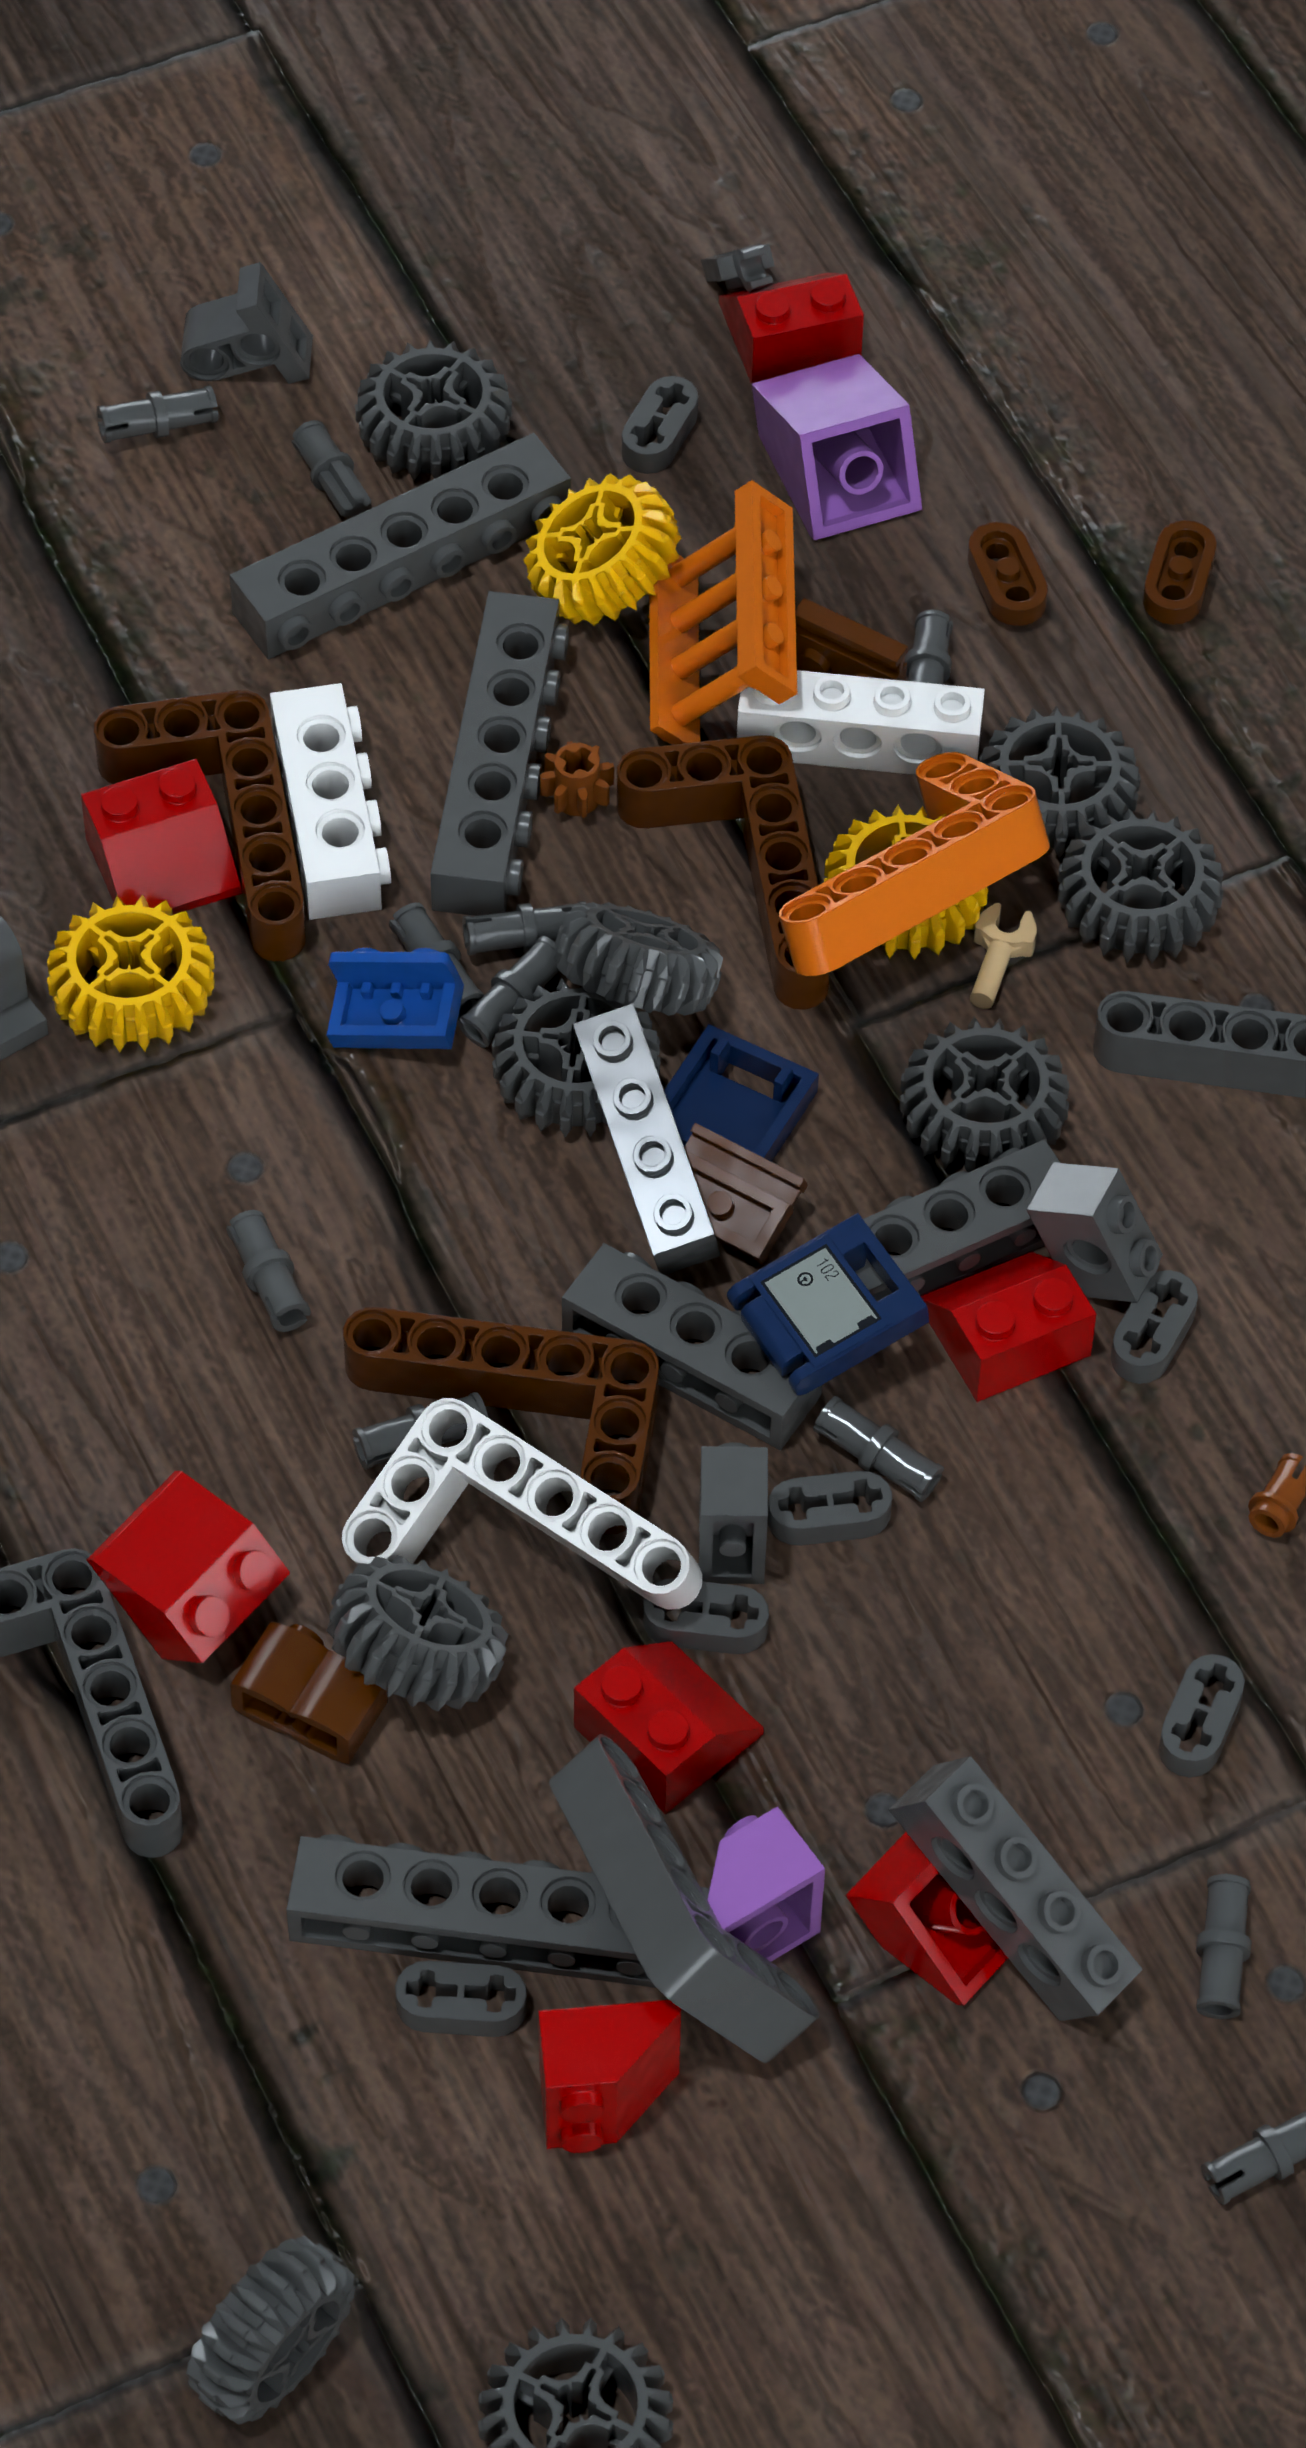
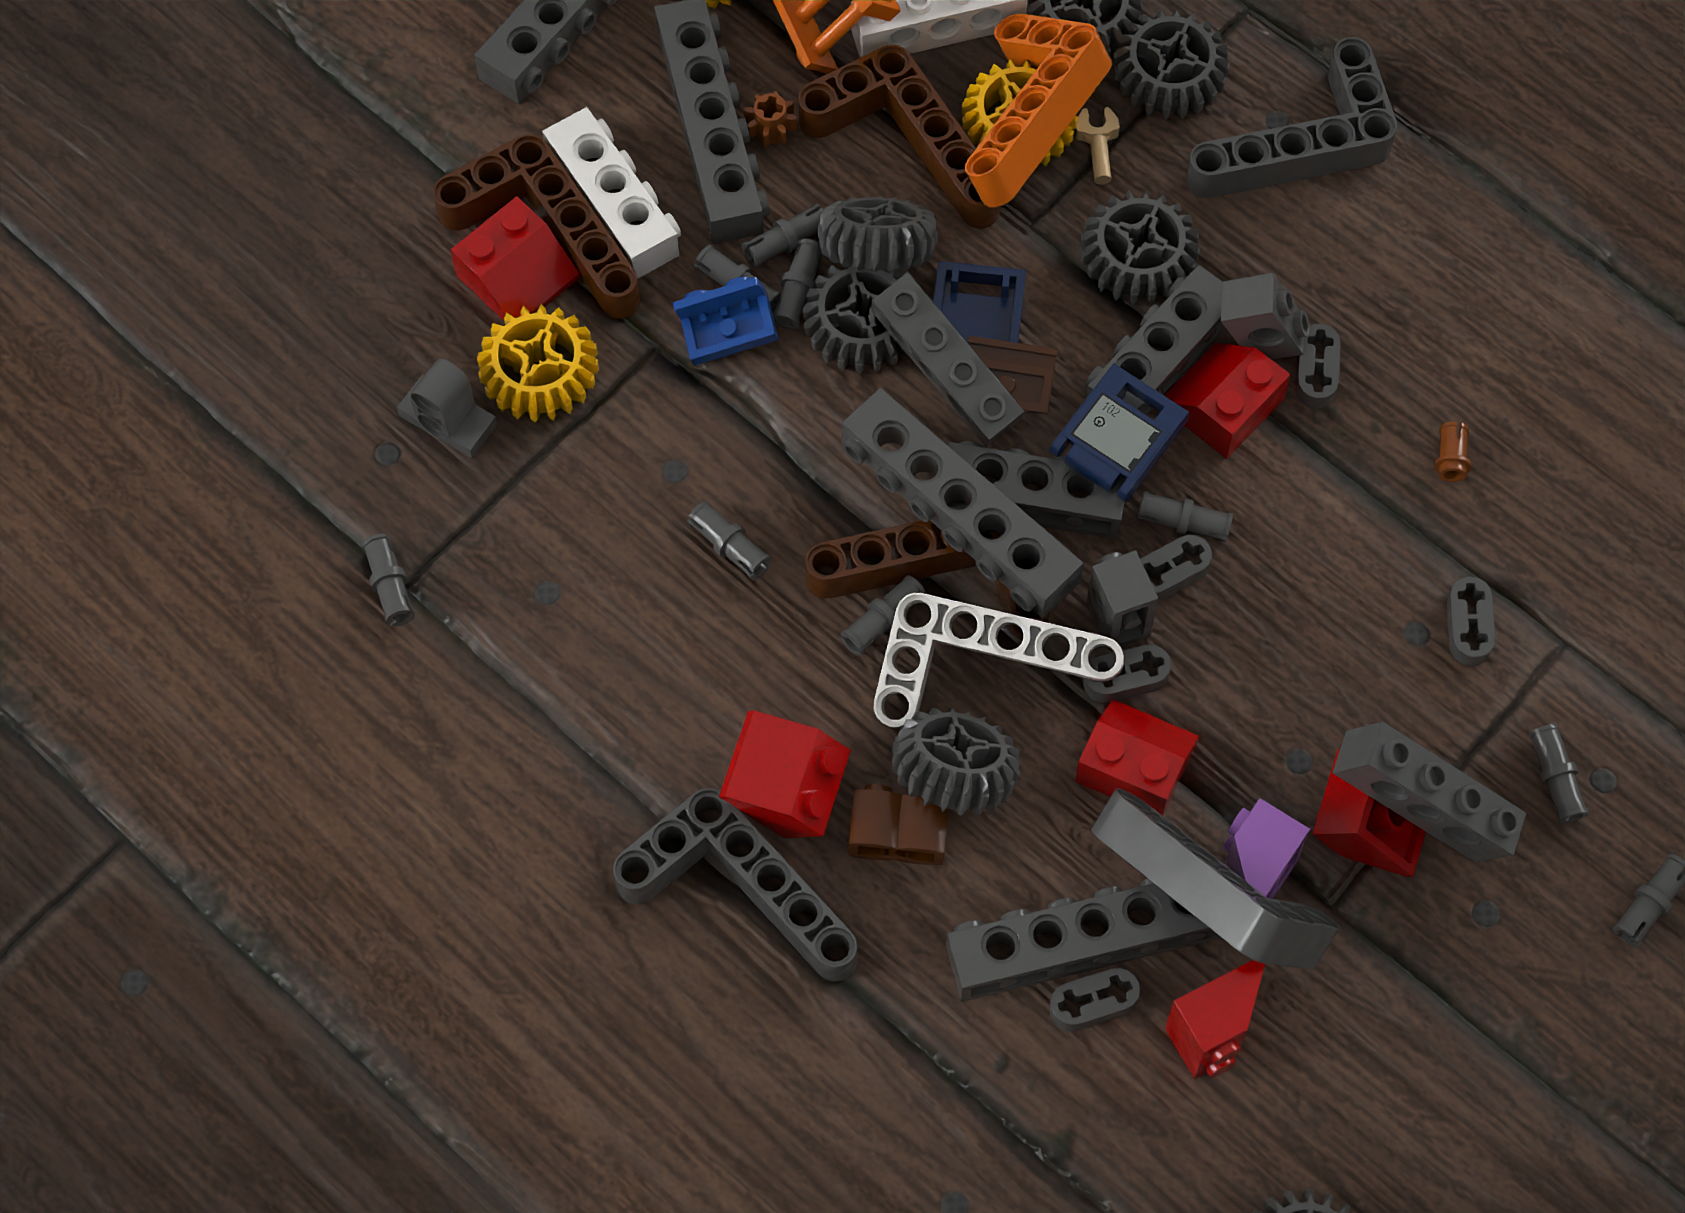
camera: 20 degrees left, 10 degrees up
(522, 1183) = (885, 421): none -> dark grey brick

